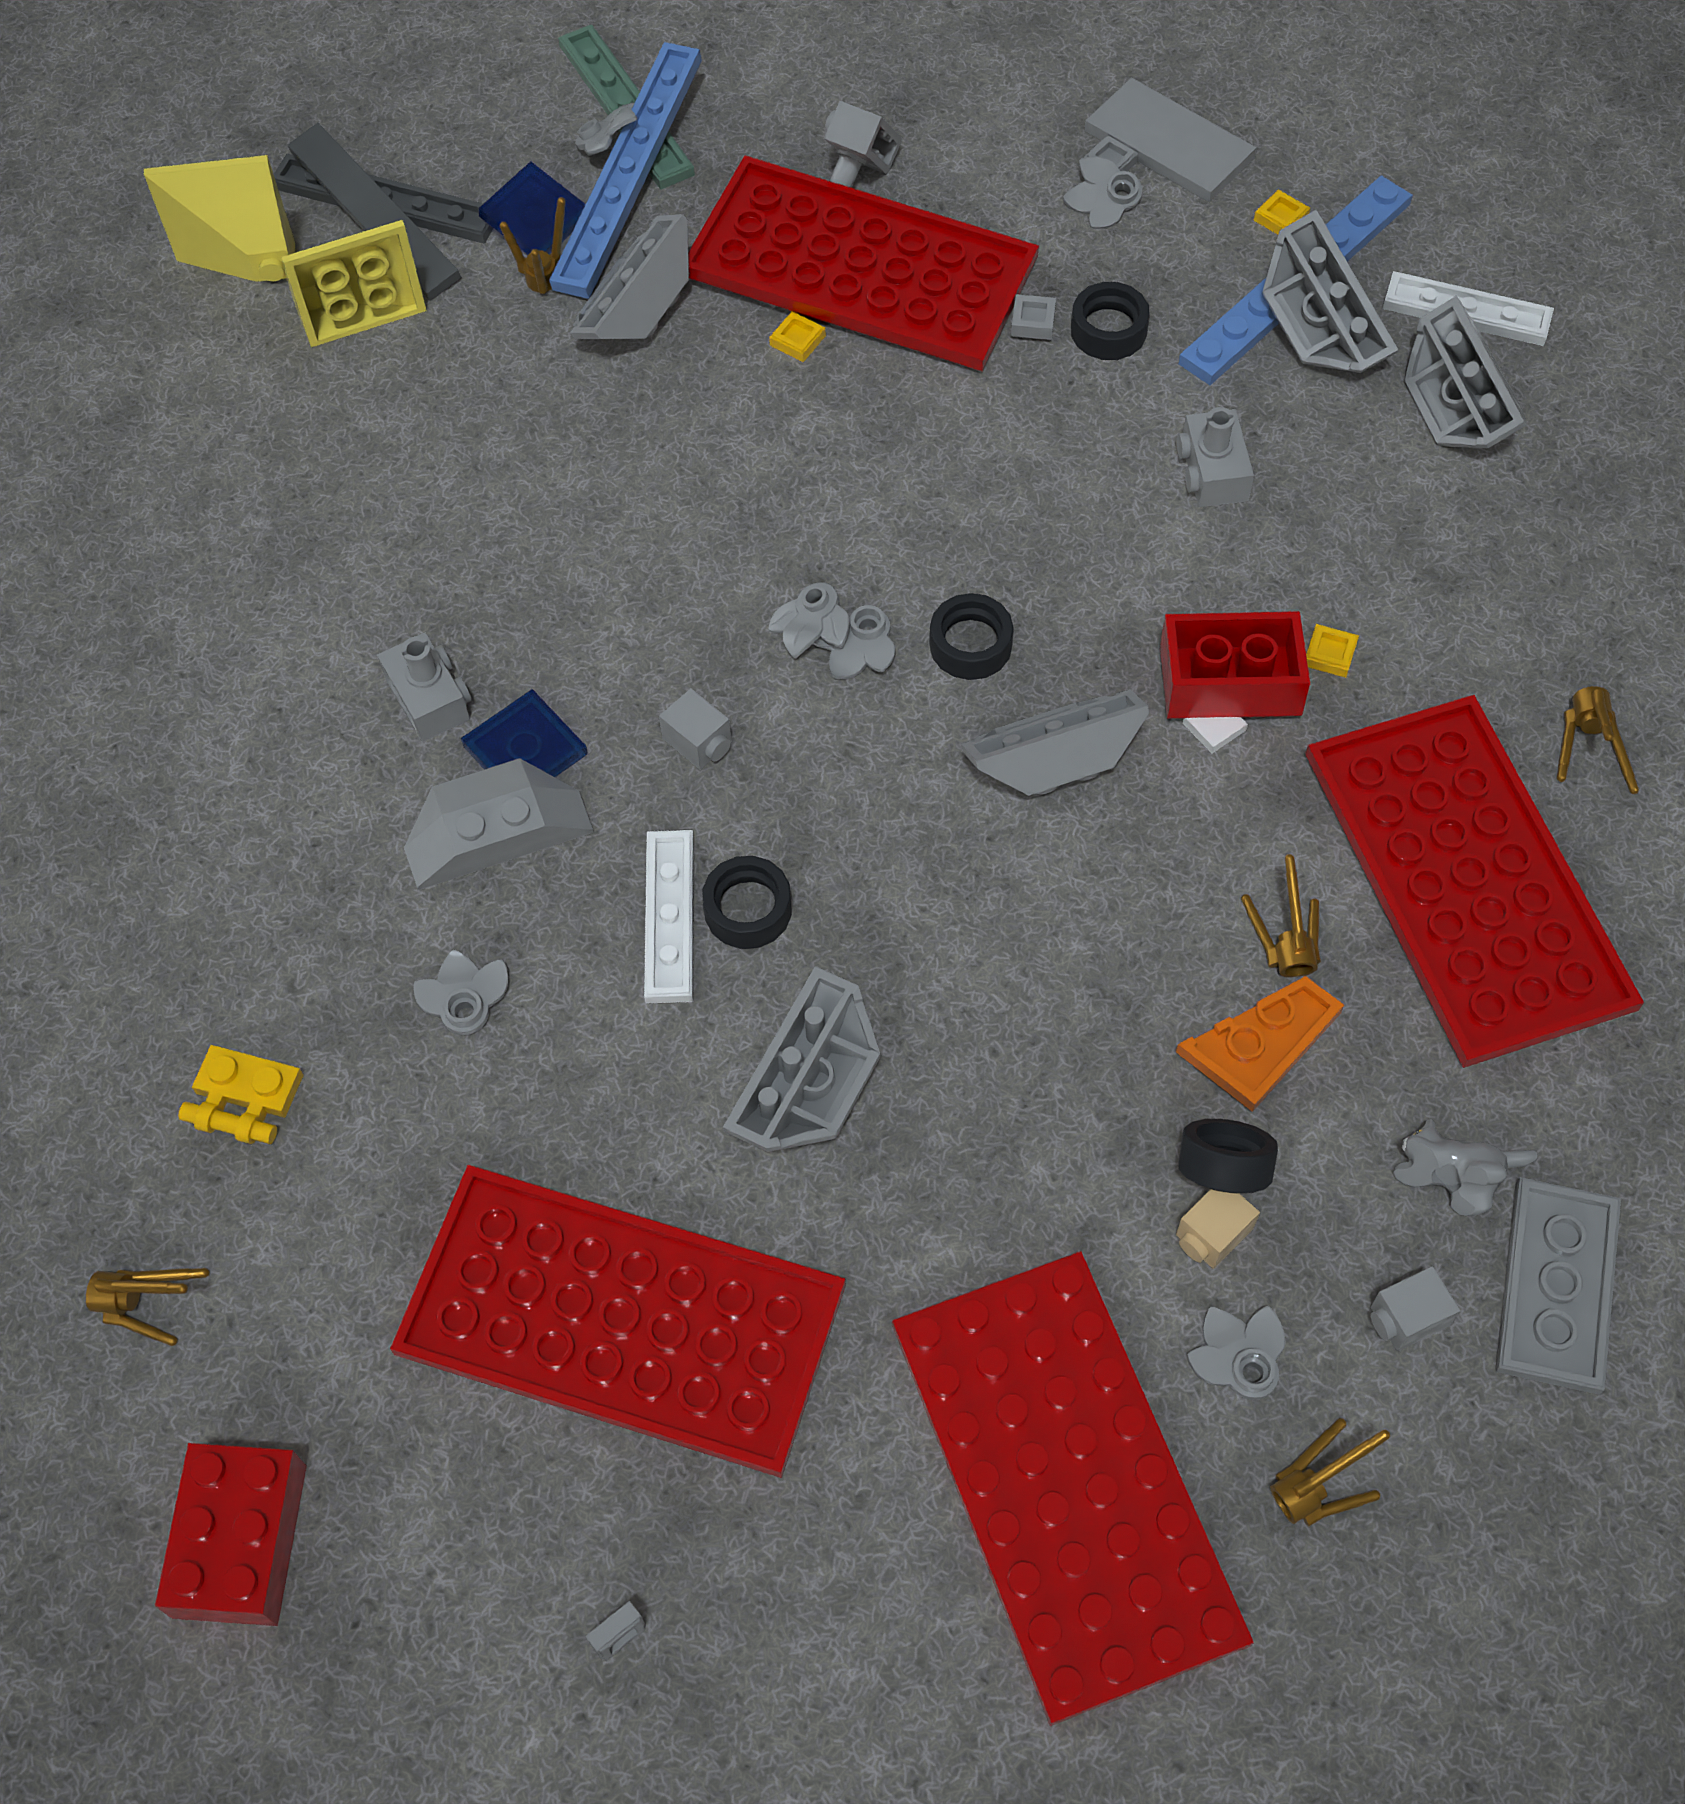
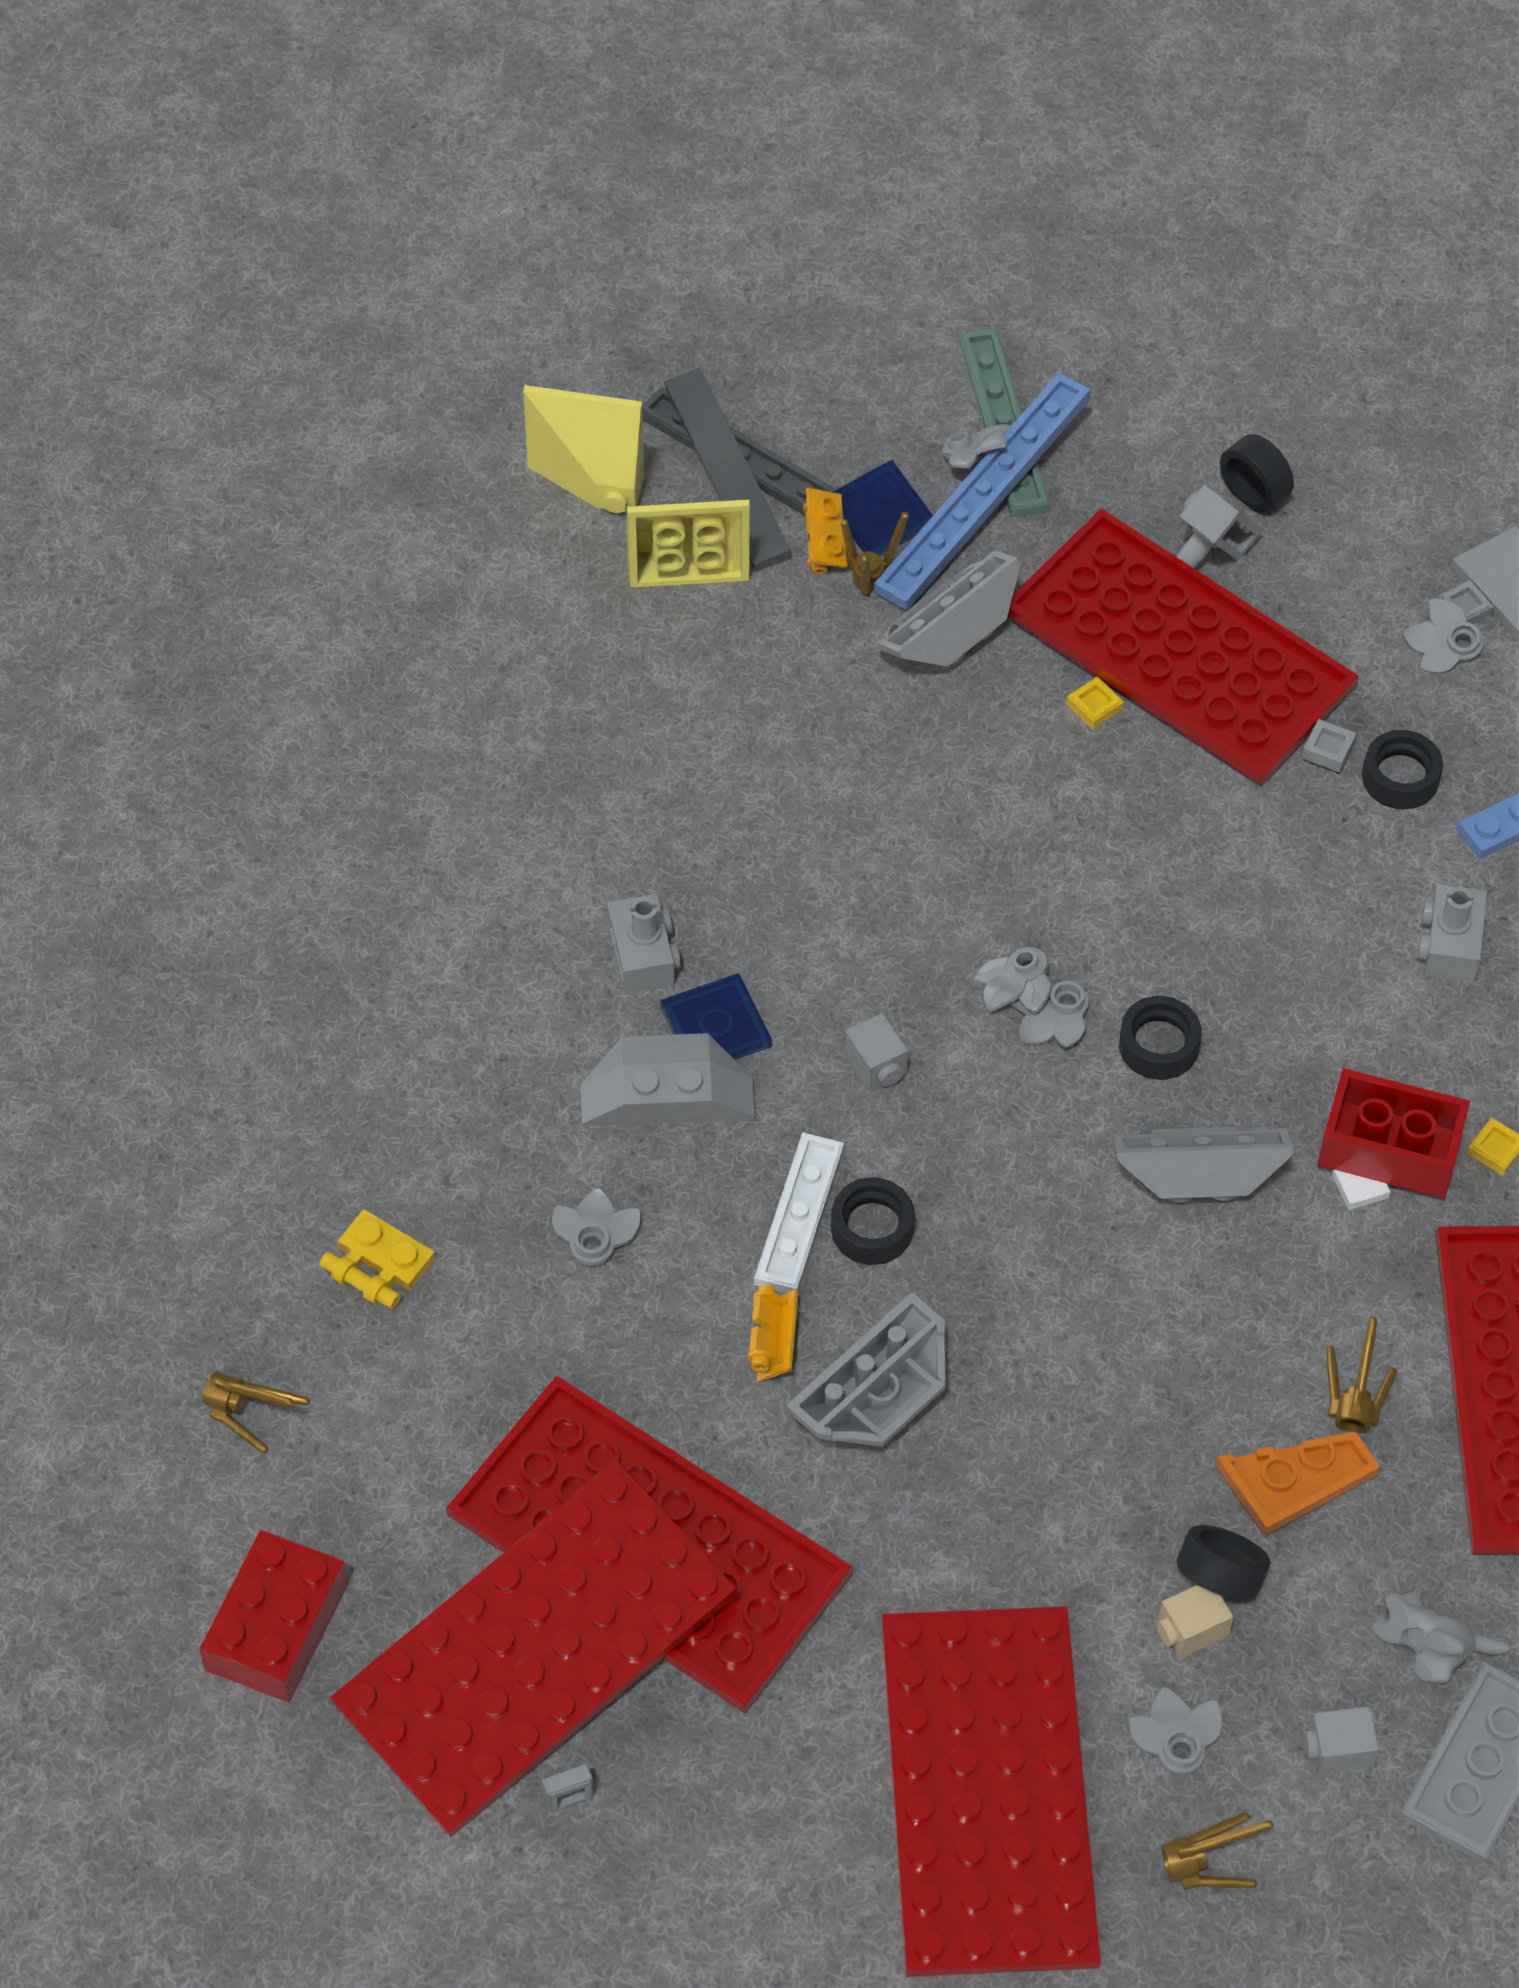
camera: 15 degrees right, 5 degrees down
(487, 242) = (825, 531): none -> light orange hinge
(528, 1484) = (533, 1647): none -> red plate
(686, 1057) = (774, 1342): none -> light orange hinge
(892, 73) = (1258, 454): none -> black tyre

